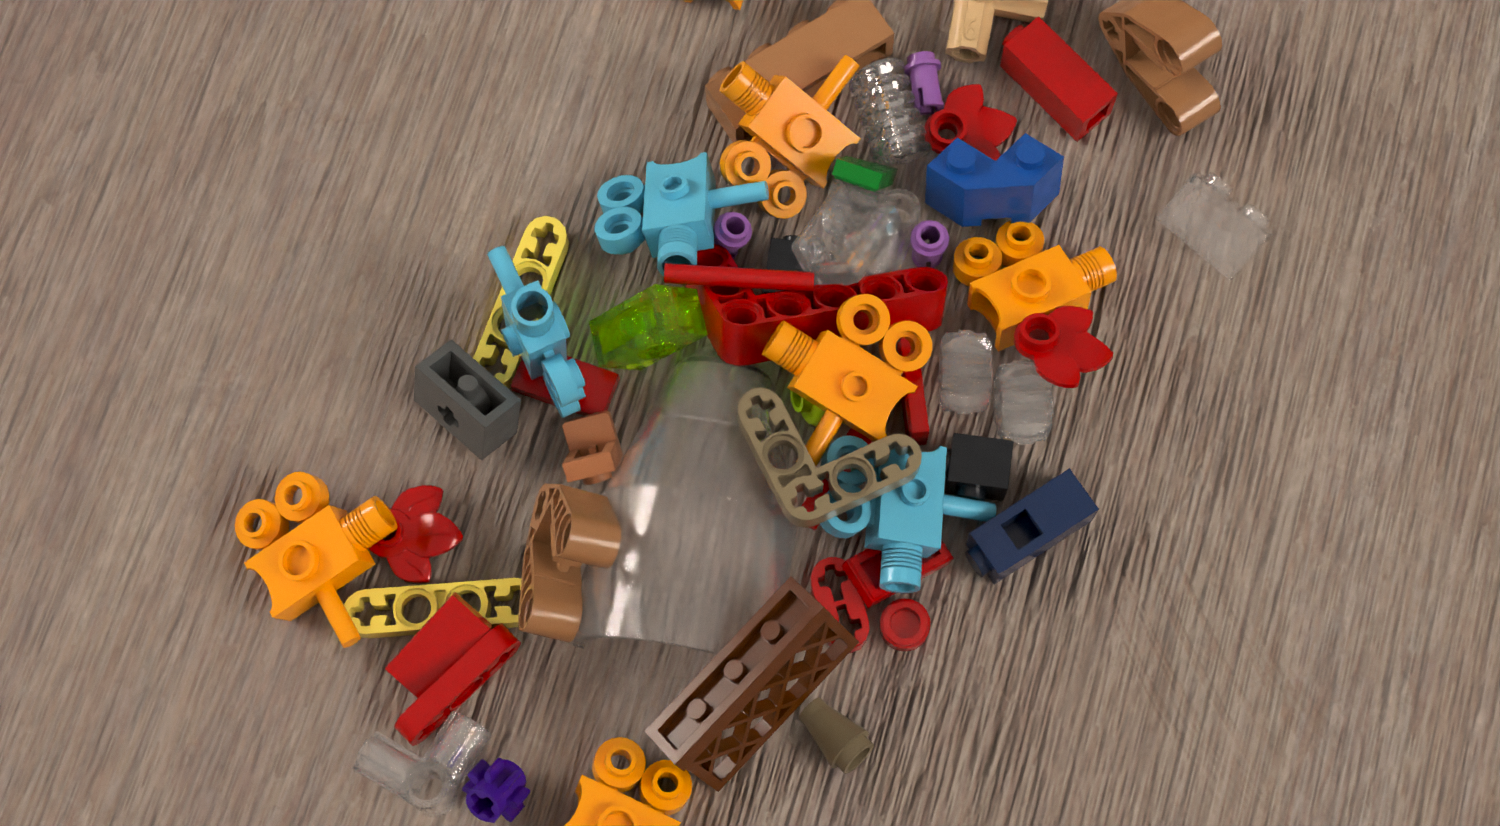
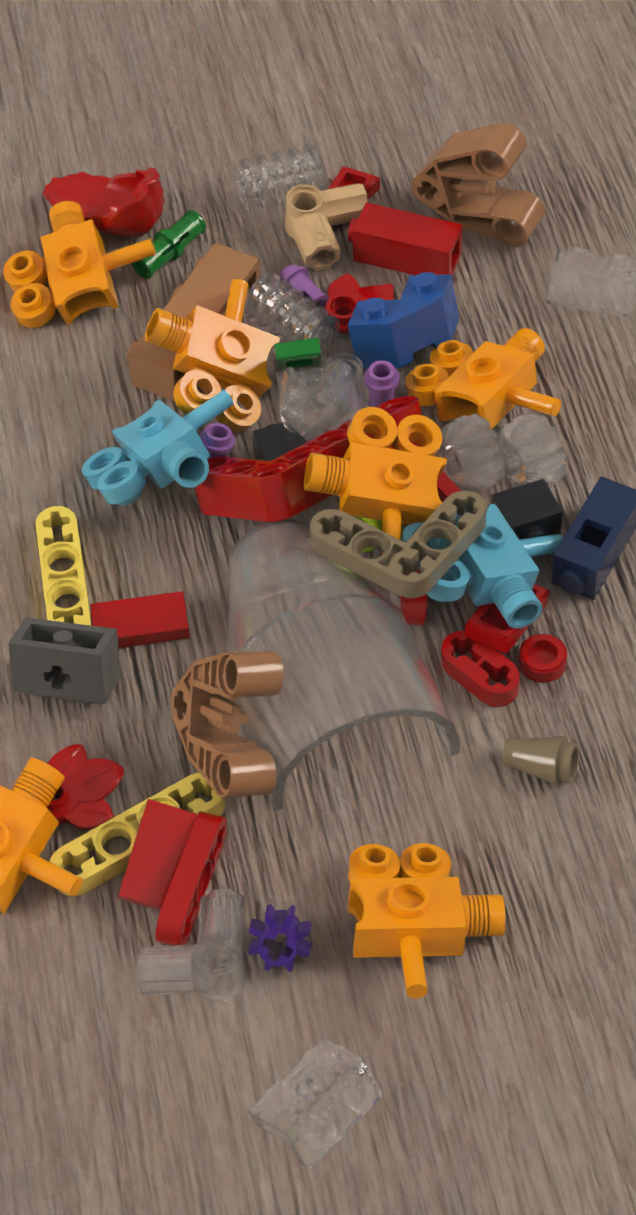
camera: 30 degrees left, 20 degrees down
(539, 341) = (103, 571): medium azure piece -> none
(592, 448) = (193, 642): nougat bracket -> none
(647, 327) = (191, 534): clear neon green brick -> none
(730, 684) = (436, 734): reddish brown fence -> none
(739, 277) = (248, 455): red bar -> none
(1062, 345) = (536, 393): red plate -> none

